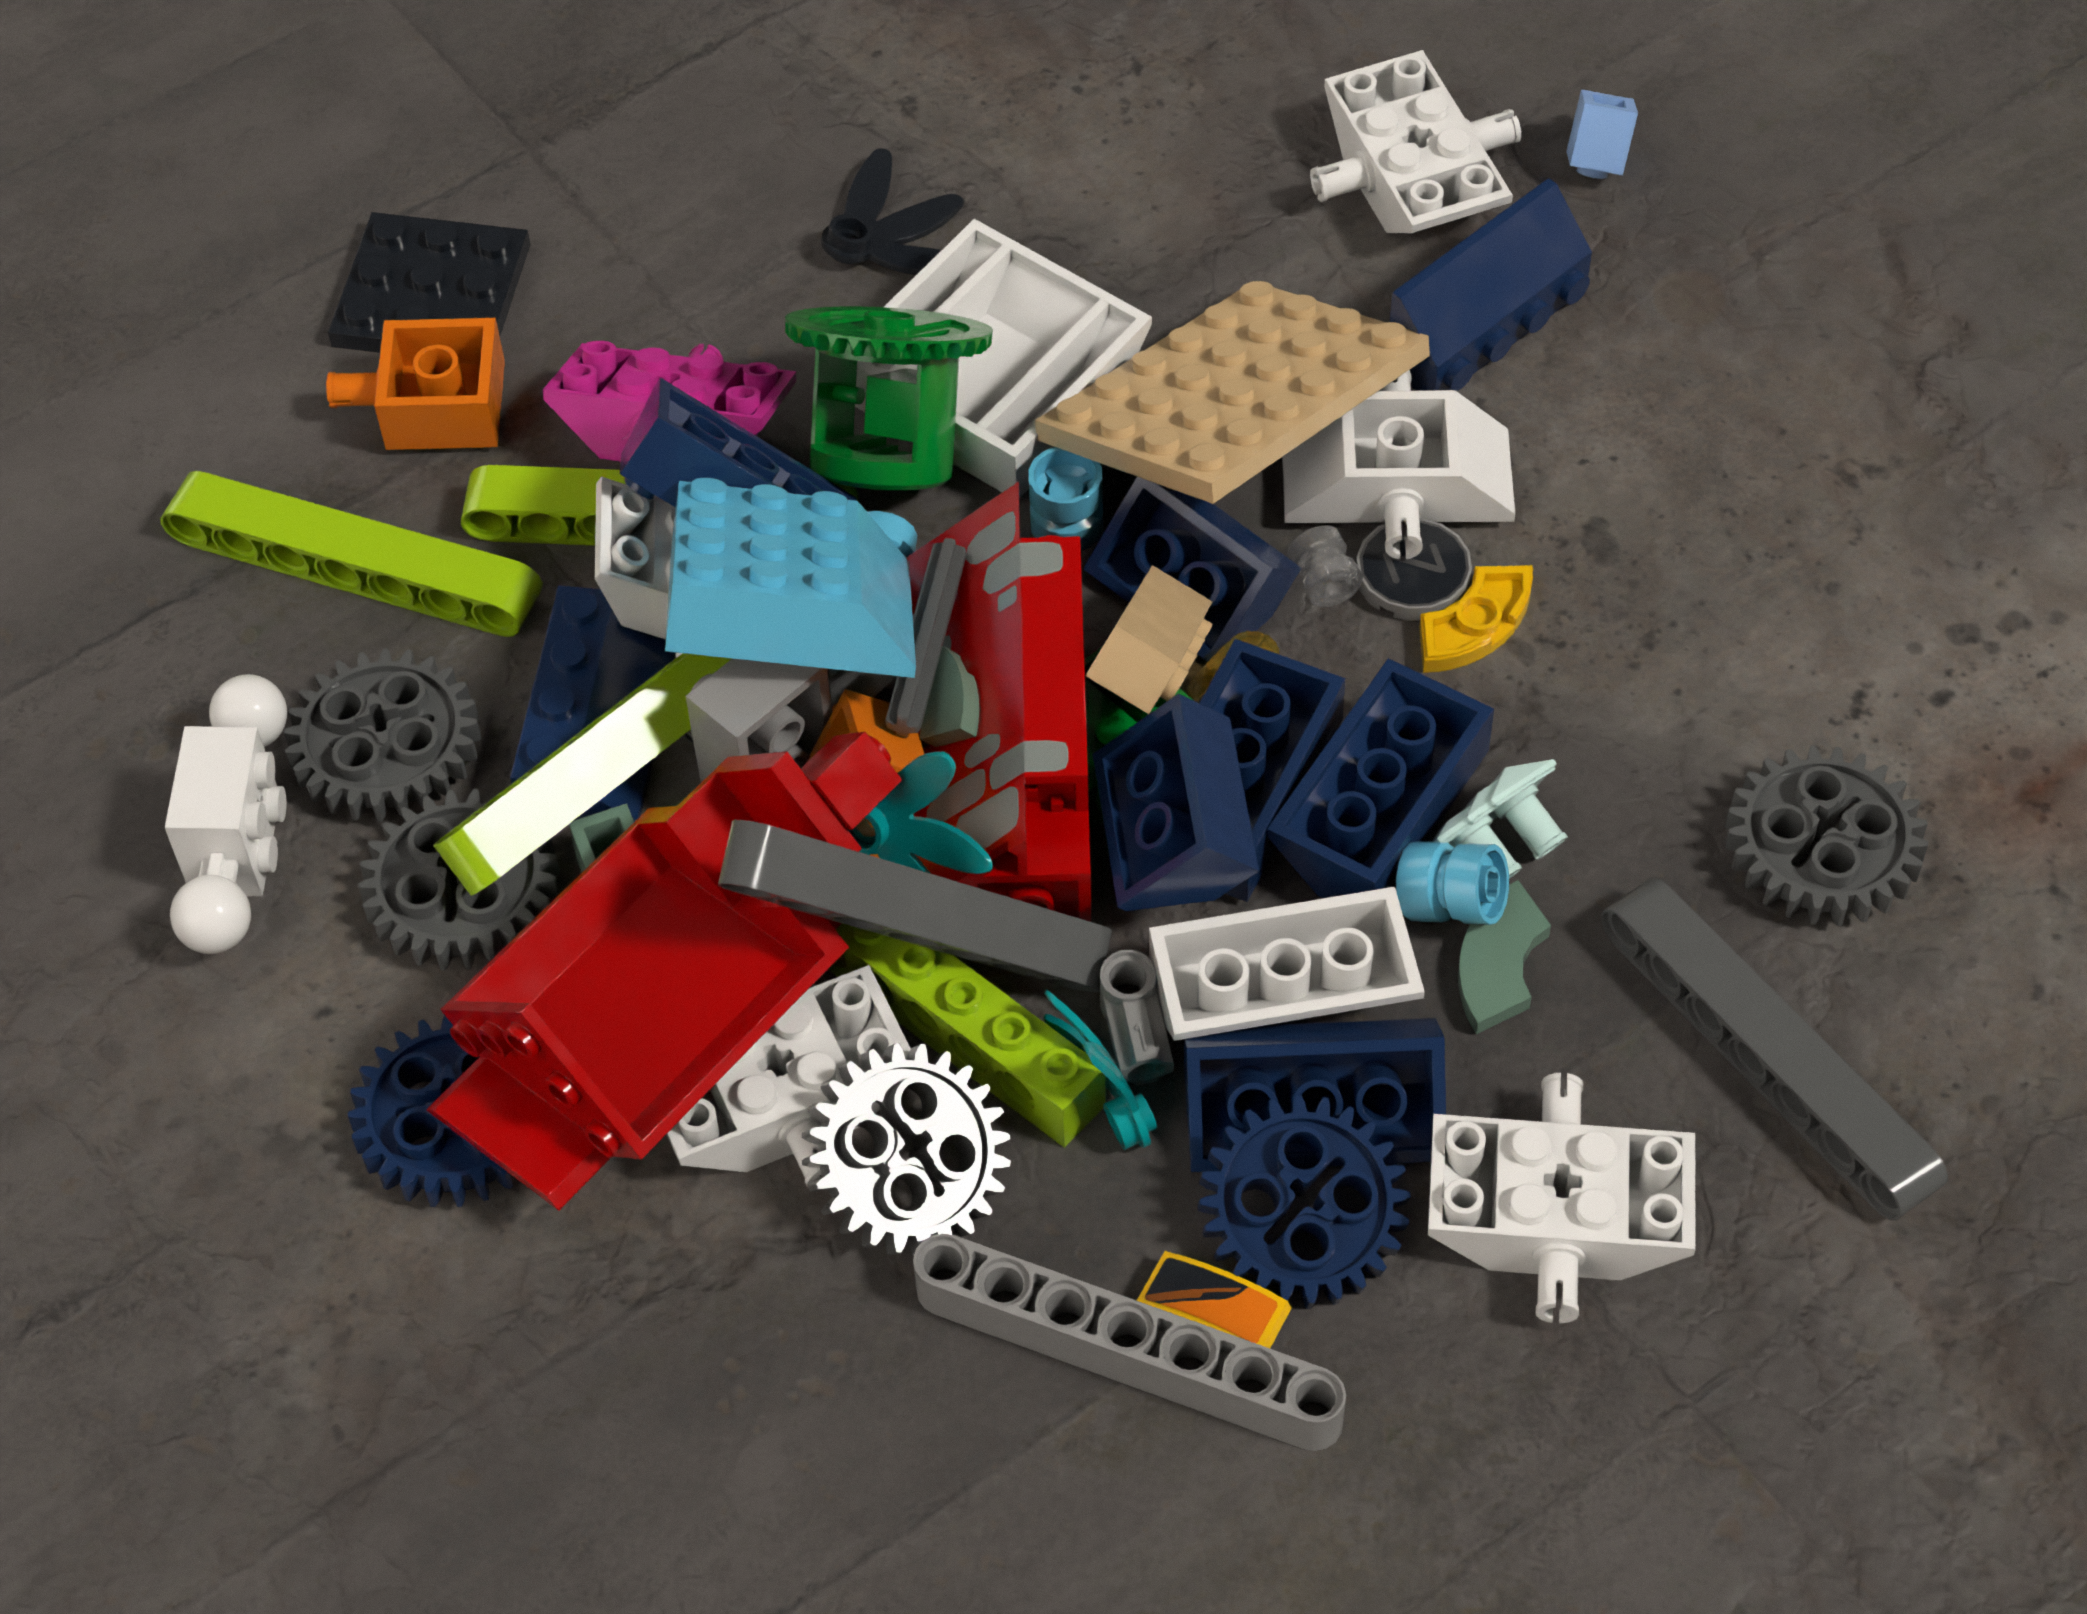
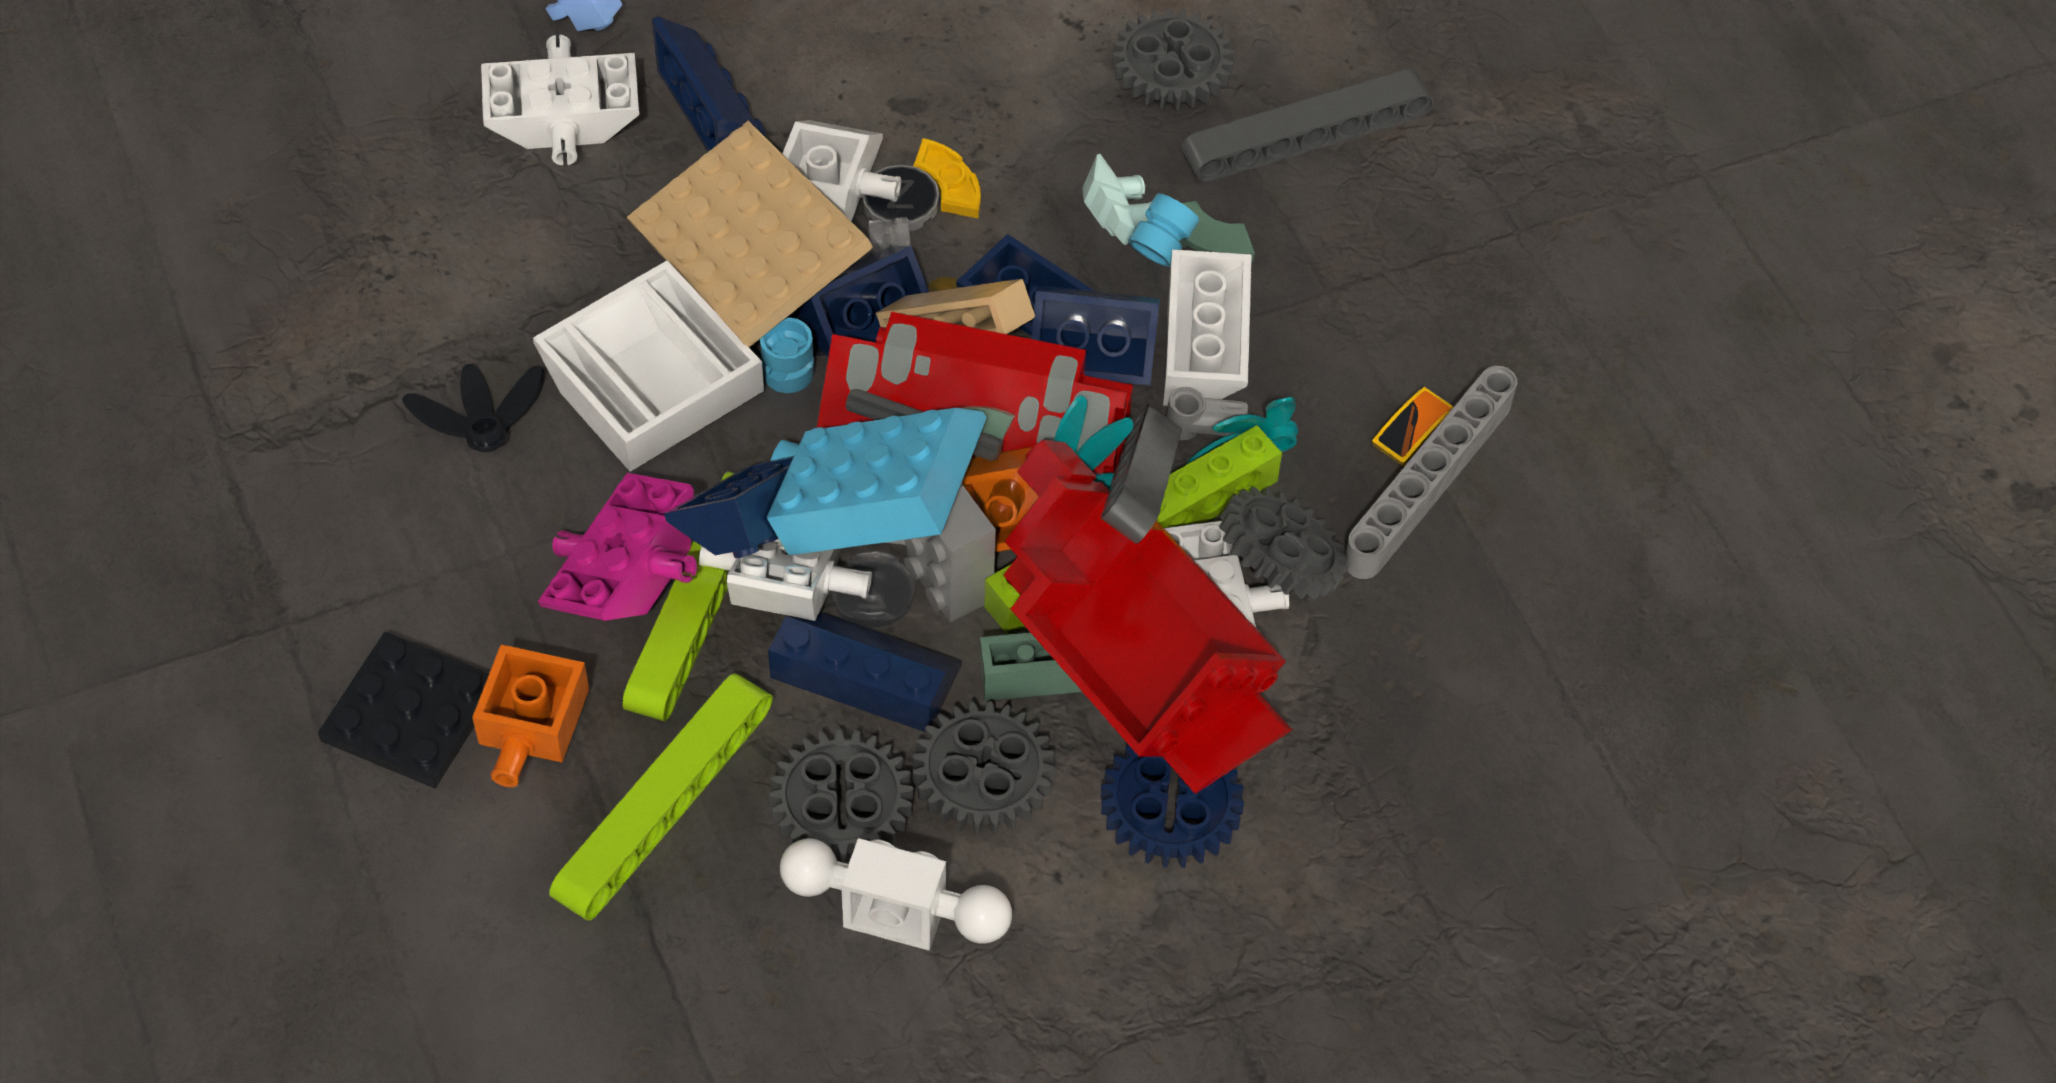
camera: 80 degrees left, 0 degrees up
(574, 775) = (944, 644): beam -> none
(899, 402) = (676, 377): green piece -> none
(1260, 1163) = (1361, 360): dark blue gear -> none
(1379, 1067) = (1288, 335): dark blue slope -> none
(1381, 782) = (1086, 238): dark blue slope -> none
(1561, 1196) = (1391, 234): white slope -> none

